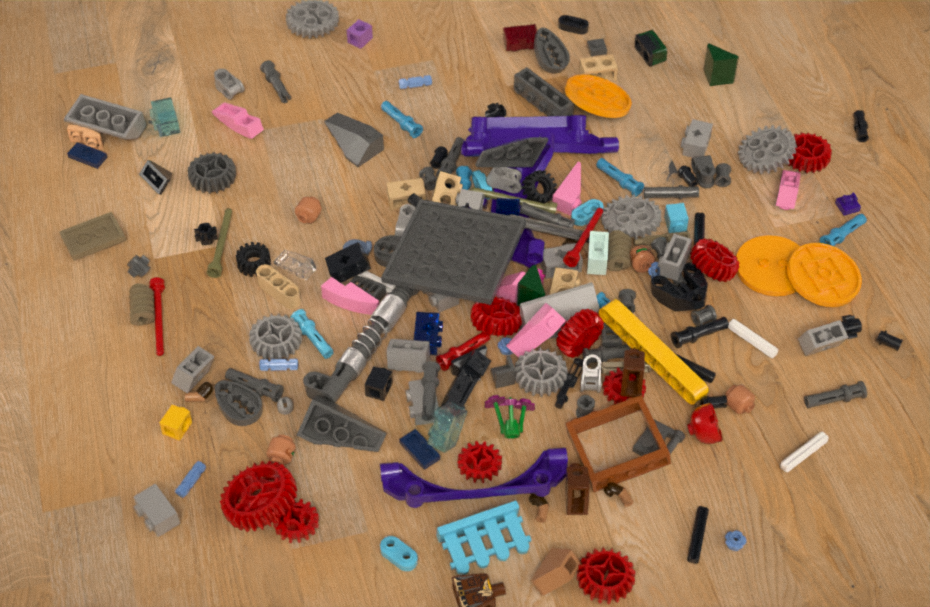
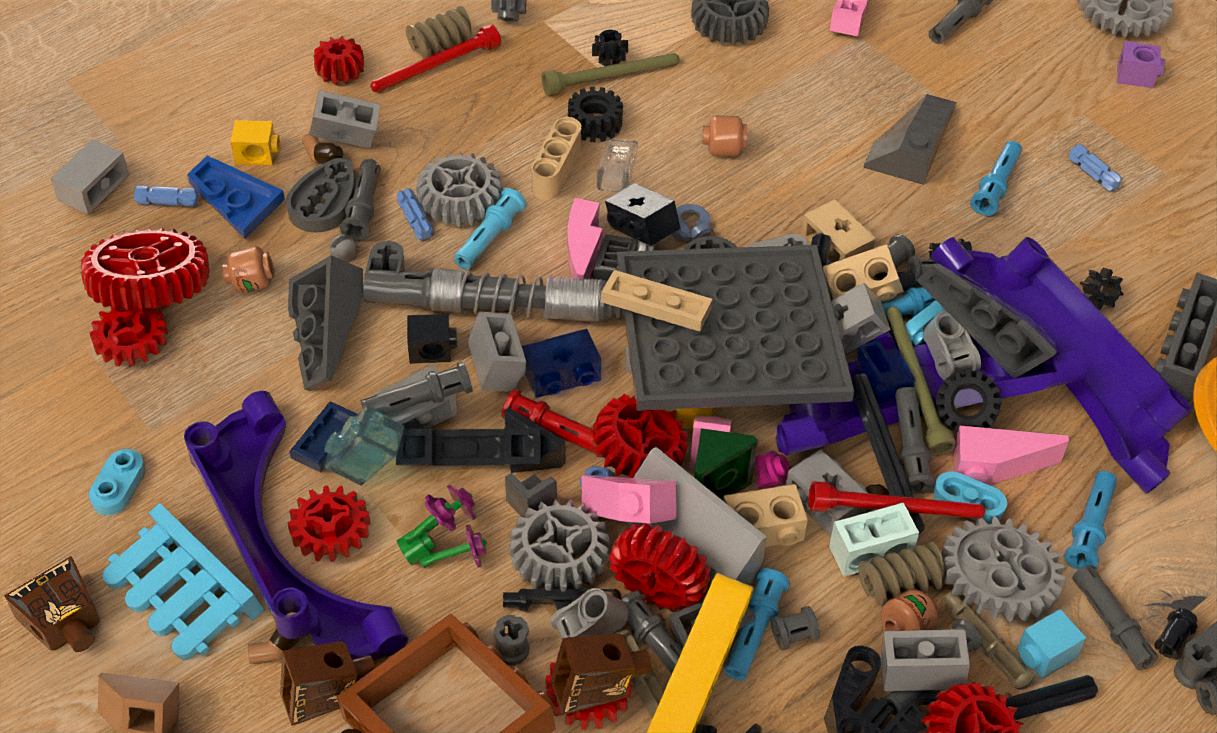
camera: 65 degrees right, 0 degrees up
(130, 361) = (338, 60): none -> red gear
(212, 443) = (235, 194): none -> blue wing
(431, 269) = (656, 300): none -> tan plate

